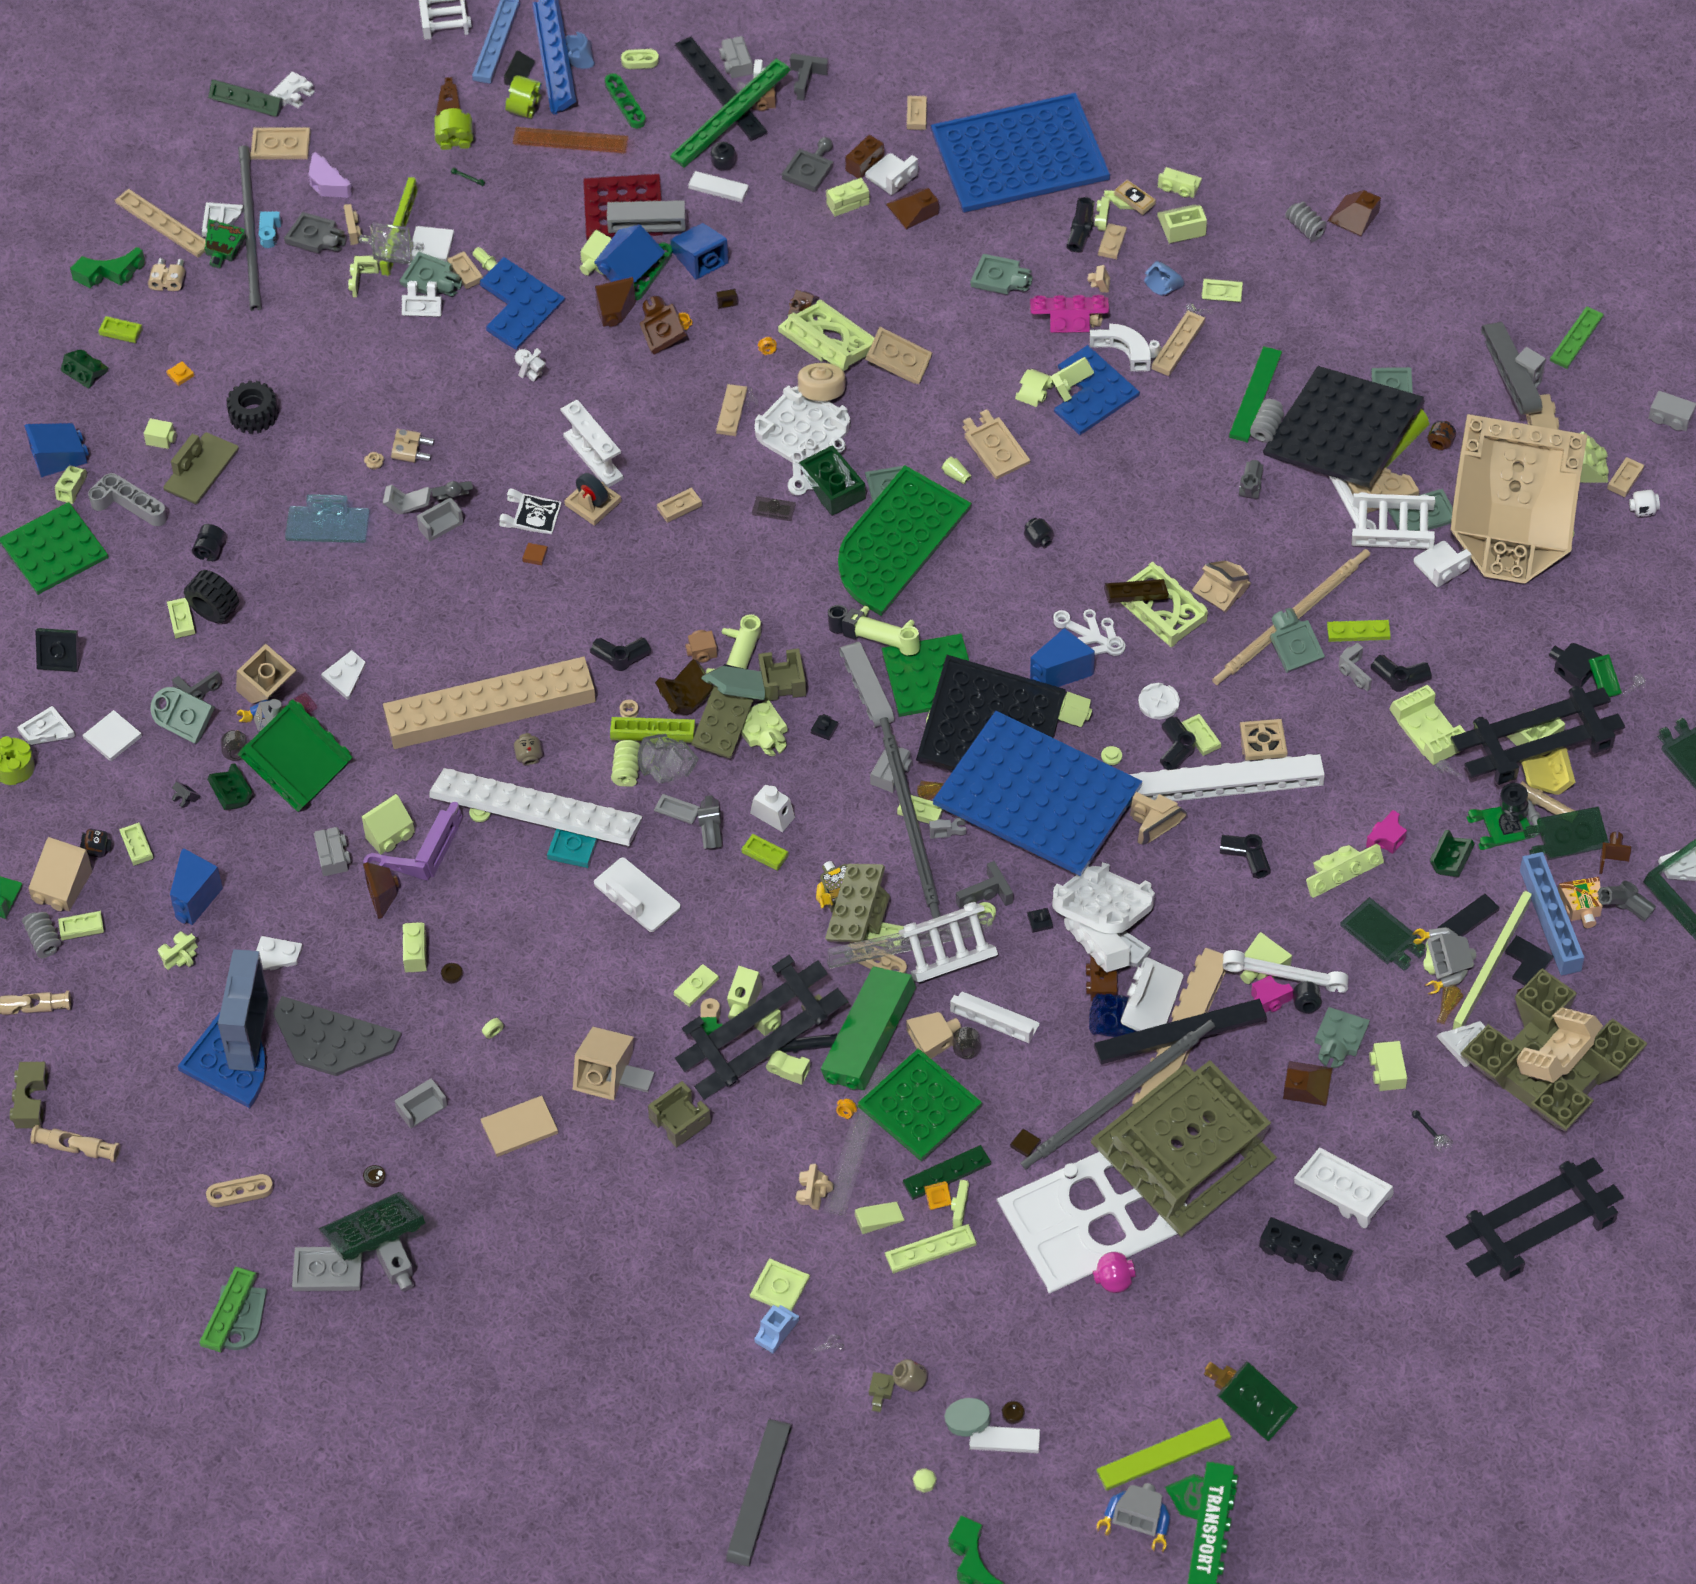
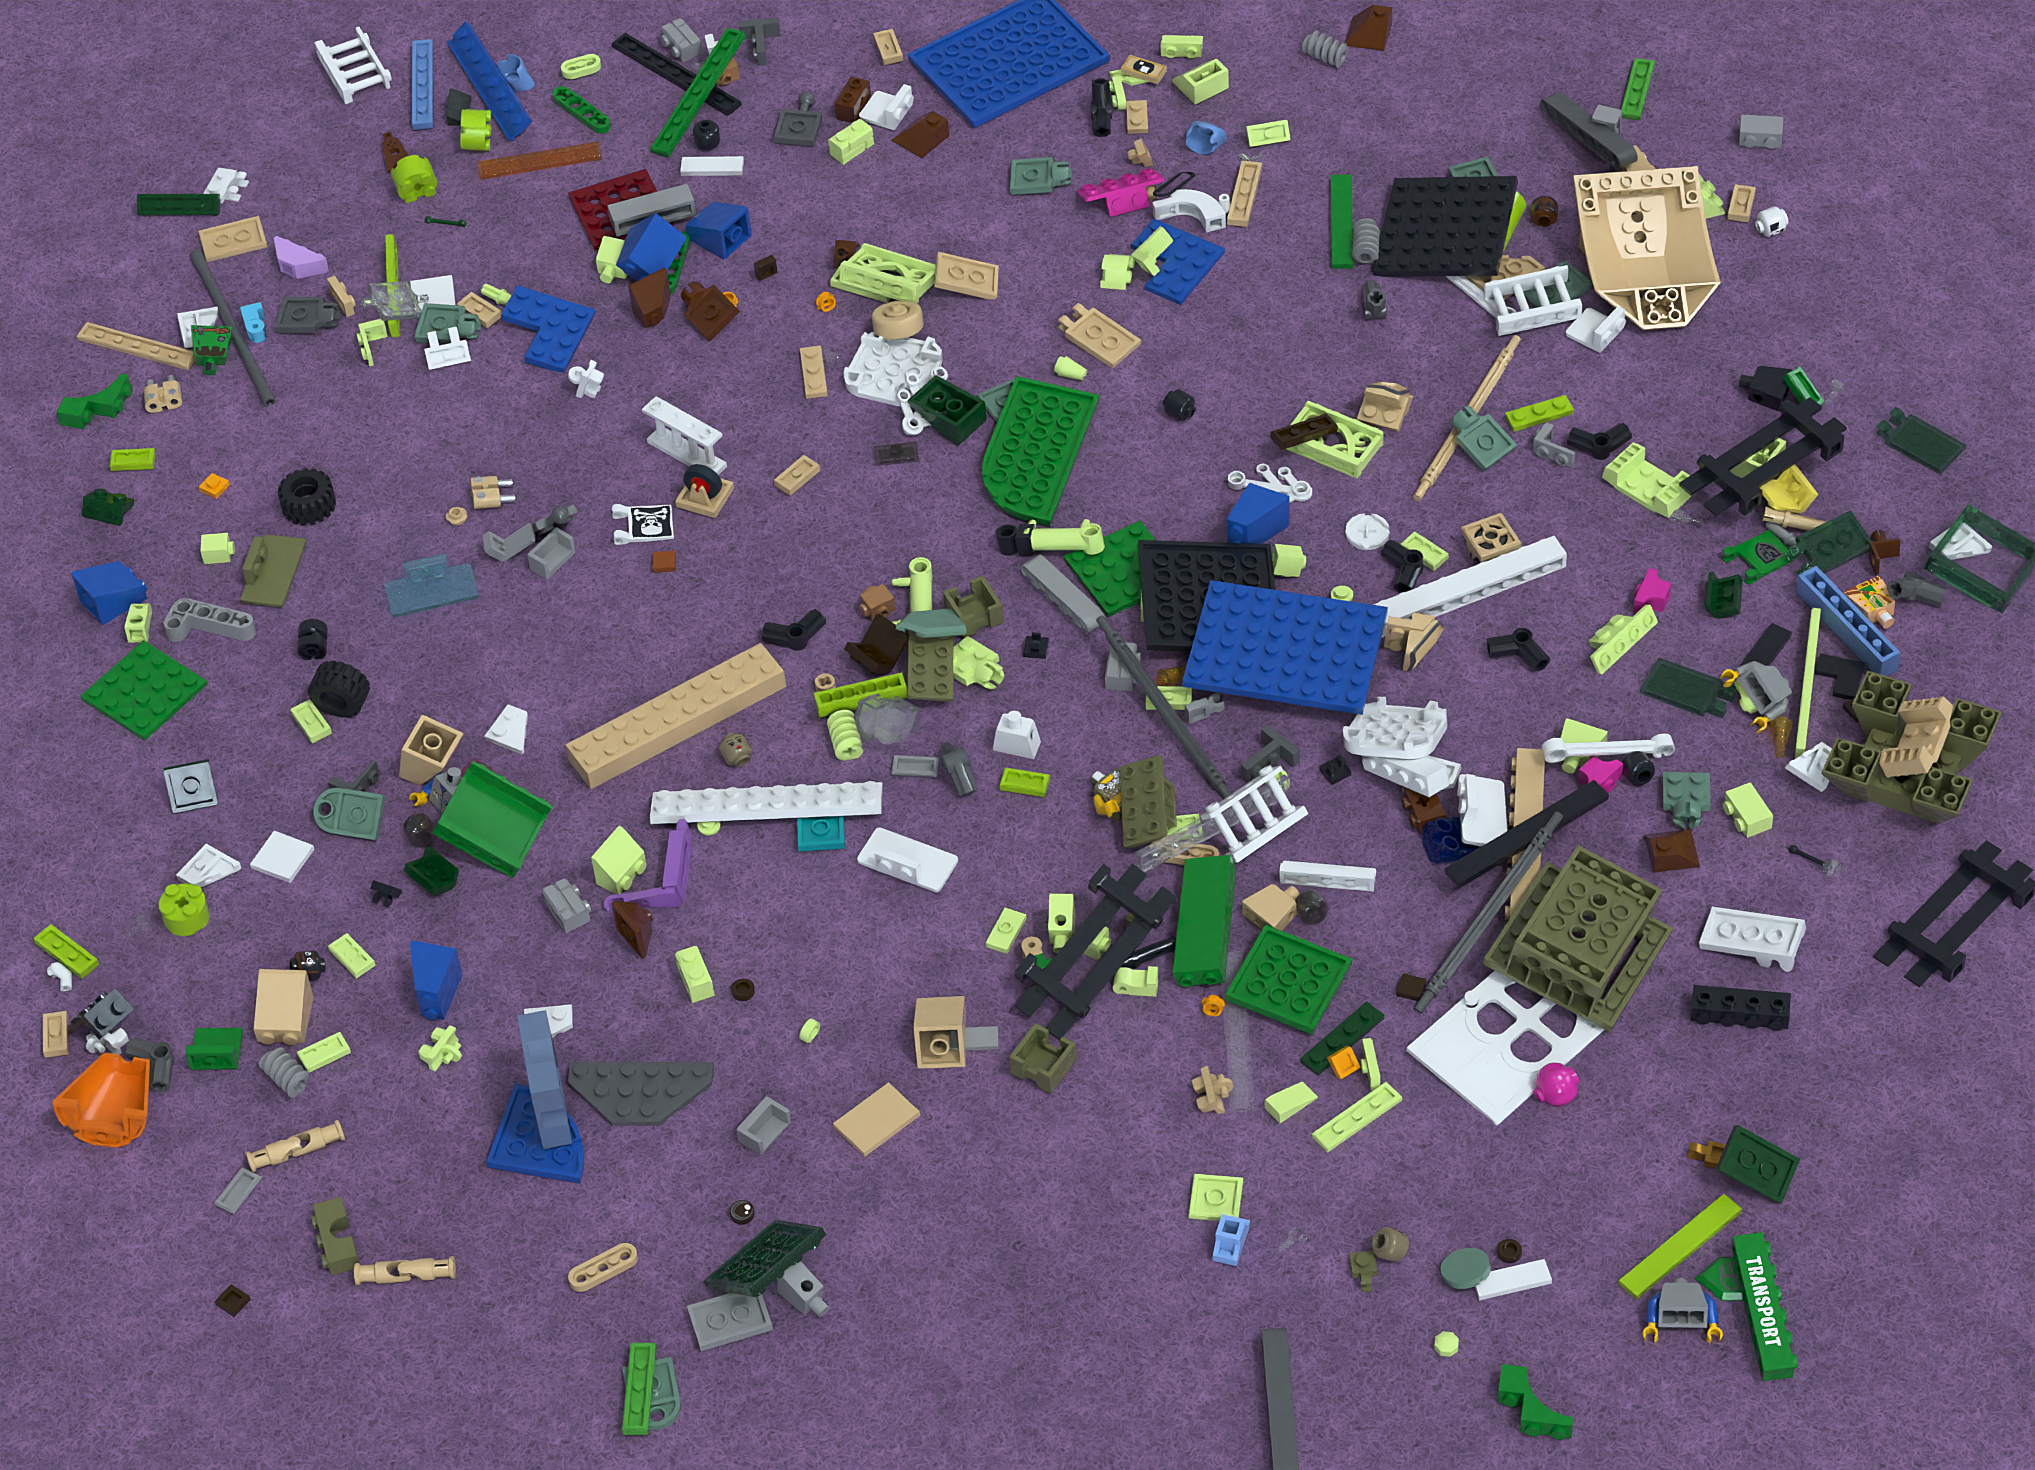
camera: 15 degrees left, 5 degrees down
(1114, 313) = (1176, 188): none -> black piece
(1514, 802) = (1766, 528): black wheel -> none

